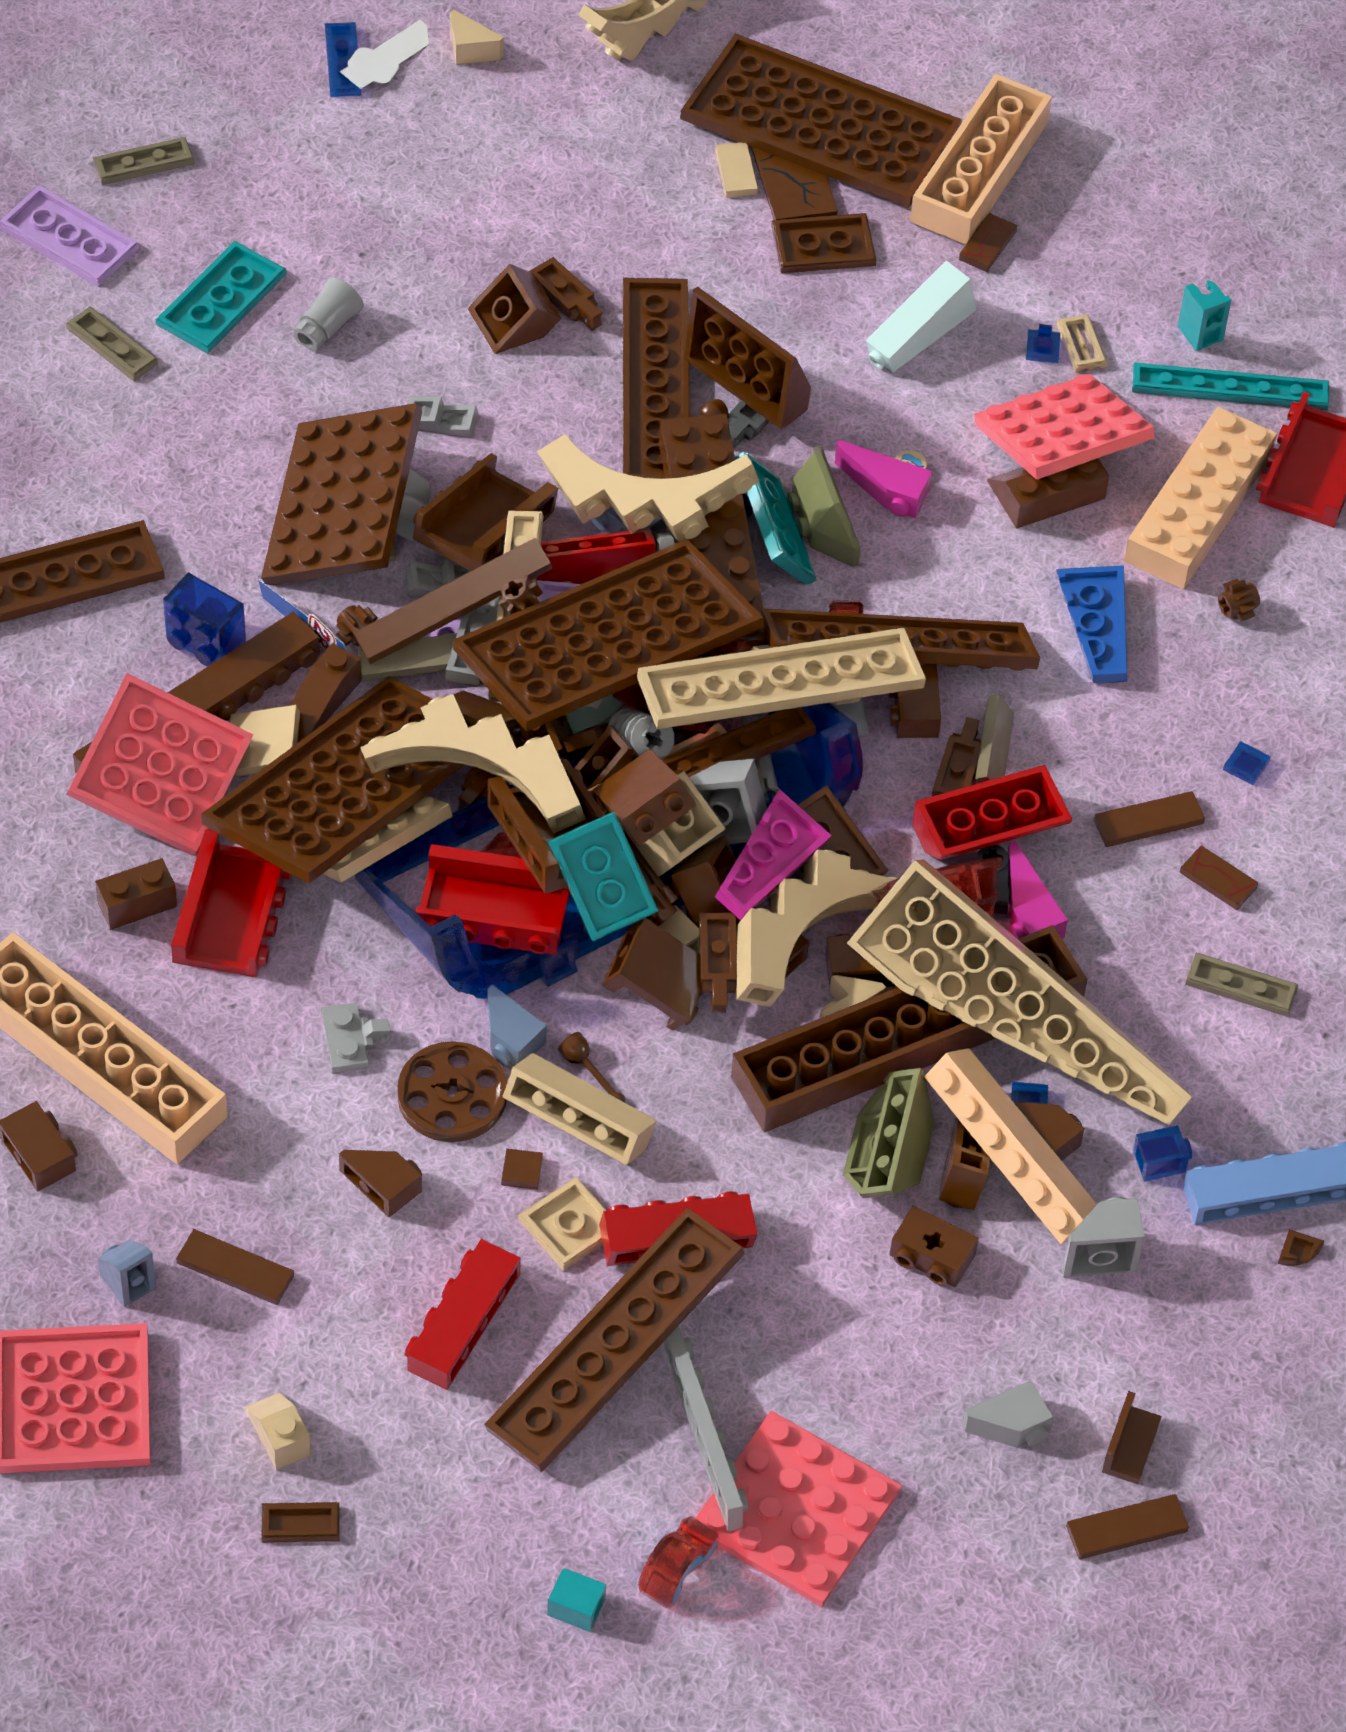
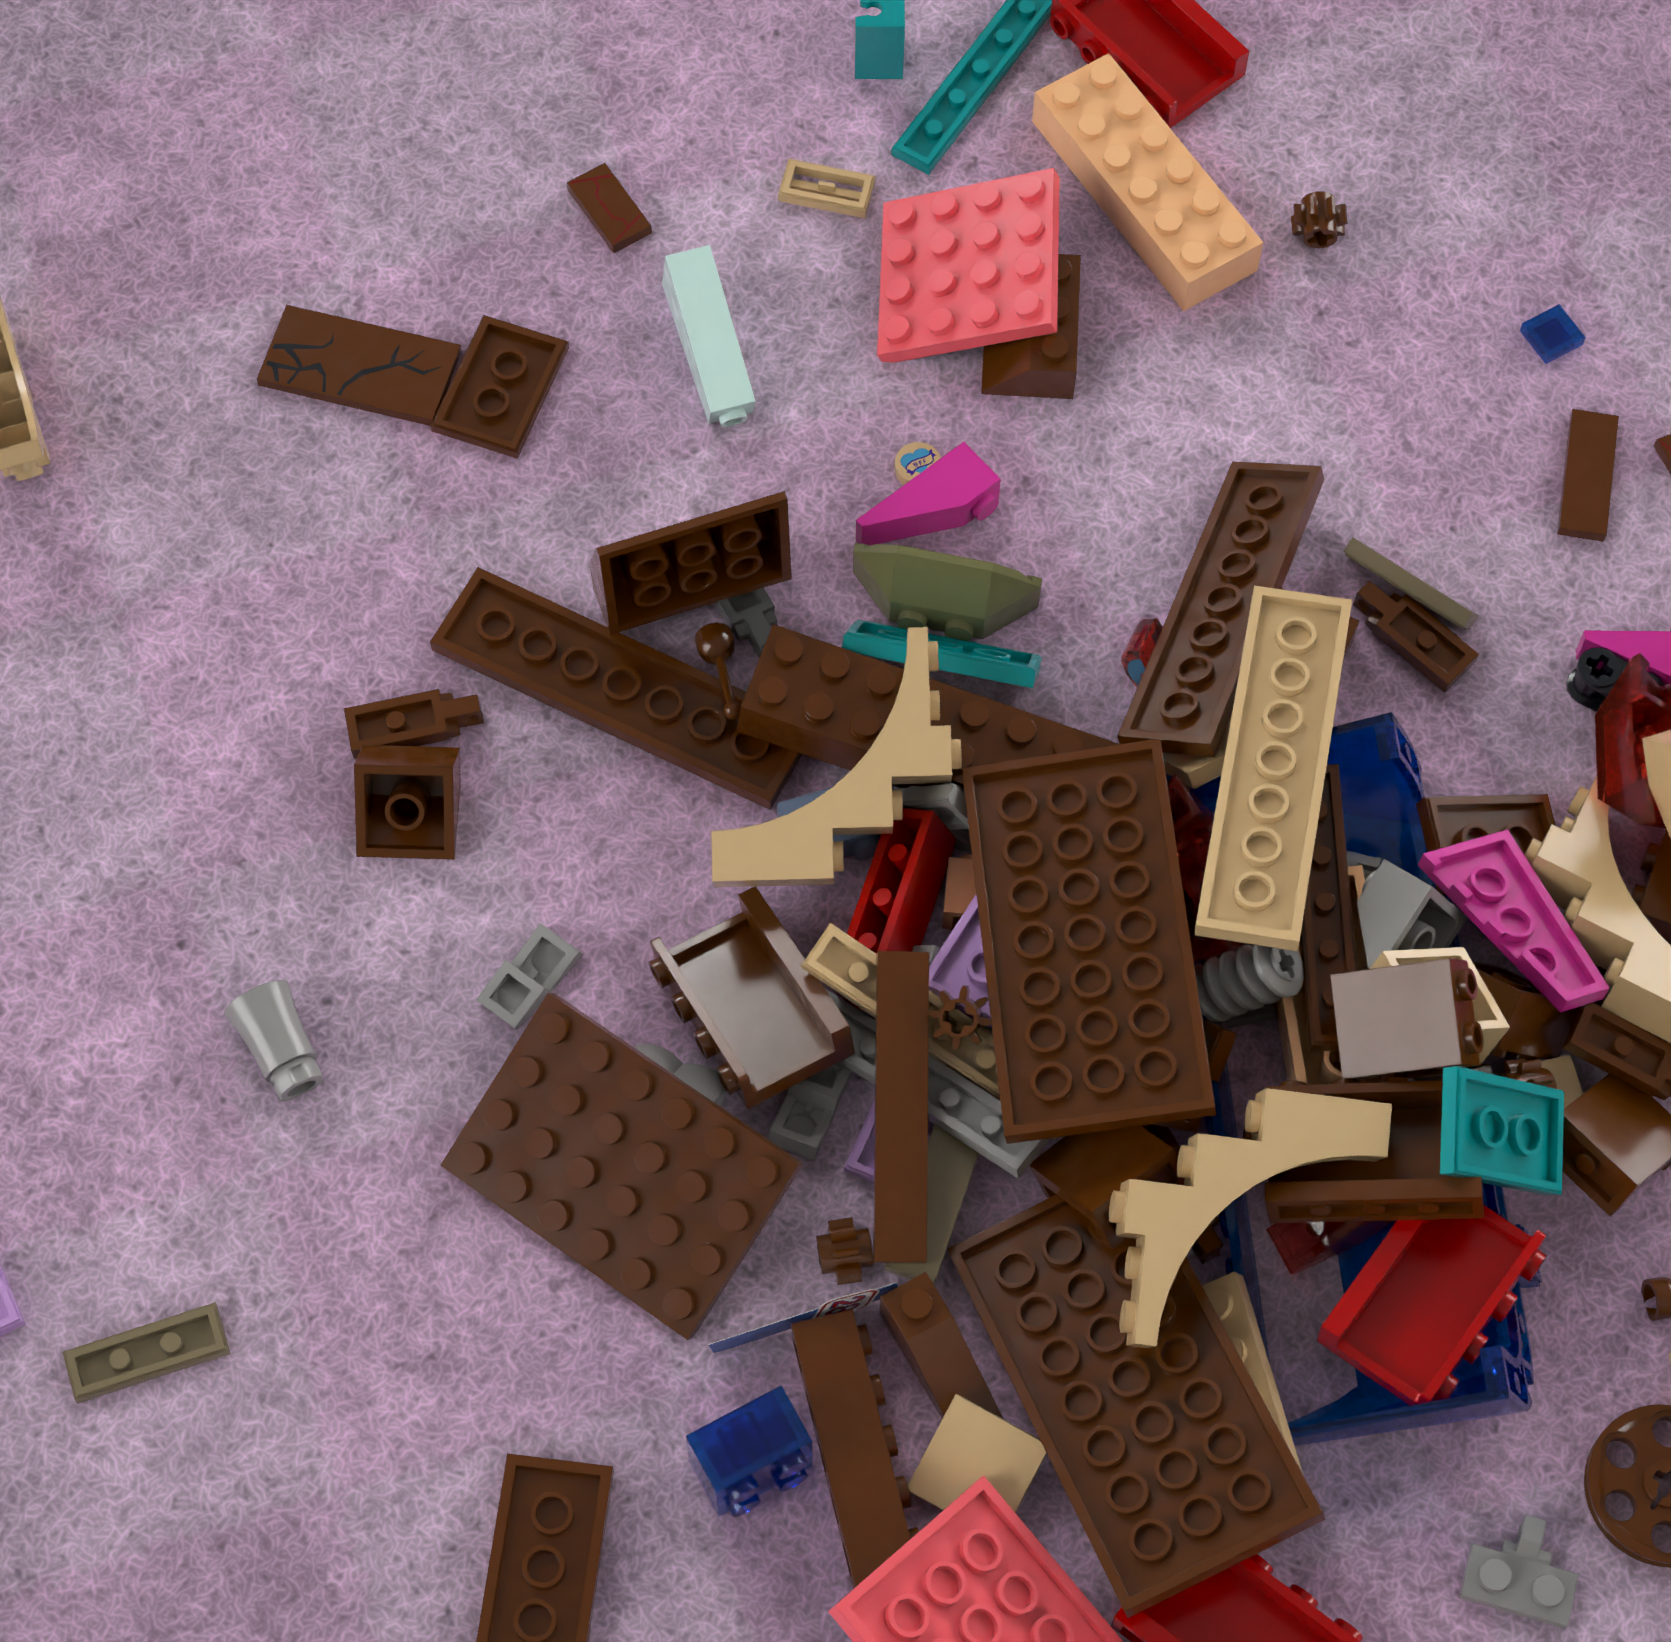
camera: 60 degrees left, 10 degrees up
(220, 297) = (149, 1165): teal tile -> none
(512, 1029) = (1607, 1365): sand blue slope -> none
(605, 758) = (1261, 1045): reddish brown slope -> none
(736, 169) = (317, 425): tan tile -> none
(820, 119) = (298, 290): reddish brown plate -> none
(980, 159) = (487, 146): light nougat brick -> none
(989, 813) = (1536, 640): red slope -> none
(1043, 344) = (808, 230): clear blue tile -> none
(1099, 618) = (1265, 377): blue wing -> none

